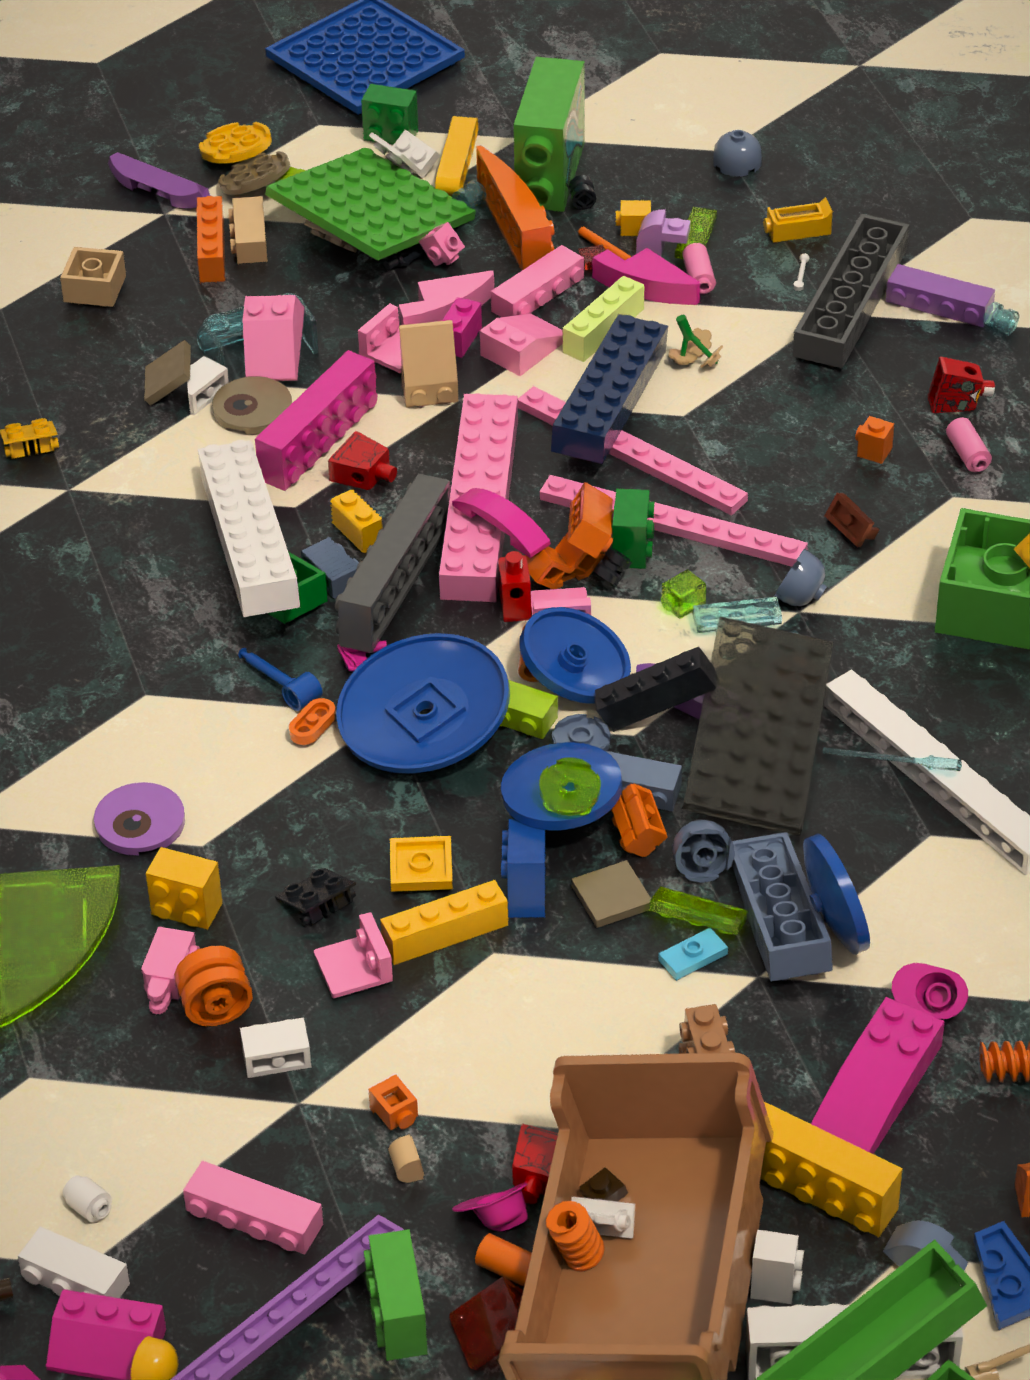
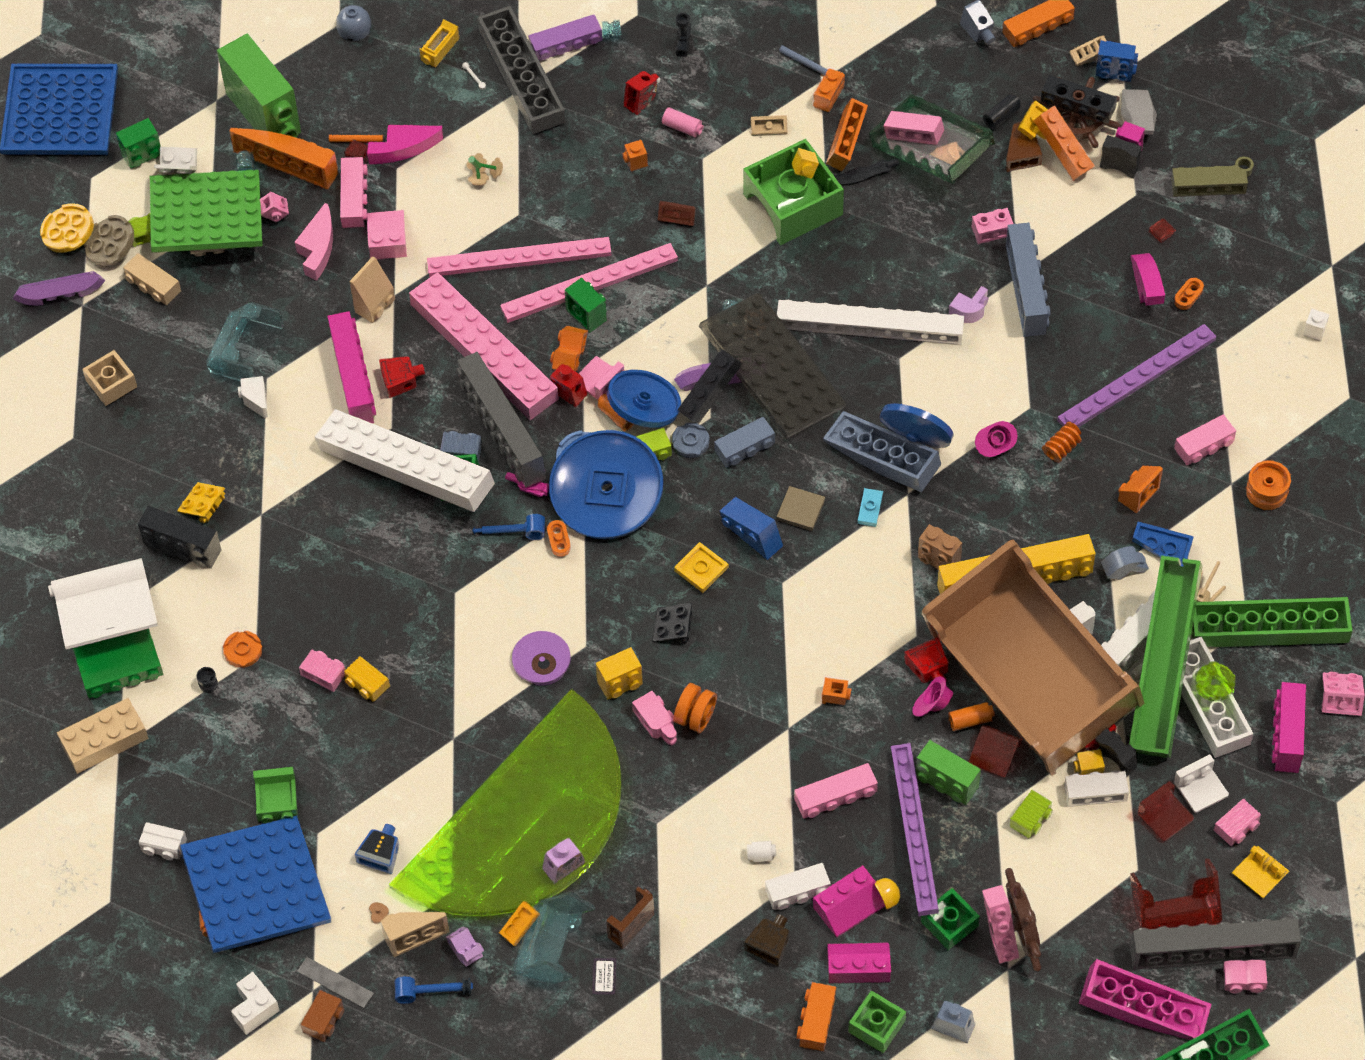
camera: 45 degrees left, 15 degrees up
(167, 372) = (230, 404): dark tan tile -> none
(210, 239) = (140, 302): orange brick -> none
(250, 403) = (294, 386): dark tan tile -> none
(272, 336) = (268, 340): bright pink slope -> none
(275, 1047) = (751, 711): white brick -> none
(355, 519) = (441, 410): yellow brick -> none
(357, 961) = (734, 639): bright pink bracket -> none
(381, 339) = (324, 290): bright pink bracket -> none
(406, 1159) = (871, 711): tan brick -> none
(445, 922) = (750, 587): yellow brick -> none
(457, 154) = (203, 140): yellow beam -> none
(466, 323) = (346, 252): dark pink brick -> none
(506, 516) = (525, 350): dark pink slope -> none
(522, 780) = (726, 473): blue dish -> none
(566, 802) = (744, 482): clear neon green plate -> none
(575, 1235) = (998, 674): orange piece -> none
(582, 192) = (305, 114): black wheel -> none
(588, 329) = (414, 187): yellowish green brick -> none
(591, 520) = (566, 317): orange brick -> none
(604, 1187) = (978, 651): dark brown plate -> none
(609, 389) = (476, 229): dark blue brick -> none
(610, 1217) = (994, 663): white hinge -> none
(613, 566) = (598, 333): black wheel -> none
(632, 215) = (351, 108): yellow brick -> none
(638, 821) = (774, 461): orange brick -> none
(658, 229) = (378, 108): lavender brick -> none
(682, 593) = (648, 321): clear neon green brick -> none
(698, 910) = (850, 484): clear neon green plate -> none
(699, 266) = (422, 114): bright pink brick -> none
(701, 226) = (391, 93): clear neon green tile -> none
(702, 850) = (819, 452): sand blue cylinder -> none
(755, 611) = (685, 312): clear light blue plate -> none
(803, 581) = (696, 268): sand blue cylinder -> none
(880, 1074) = (1017, 499): dark pink slope -> none
(930, 762) = (874, 320): clear light blue piece -> none

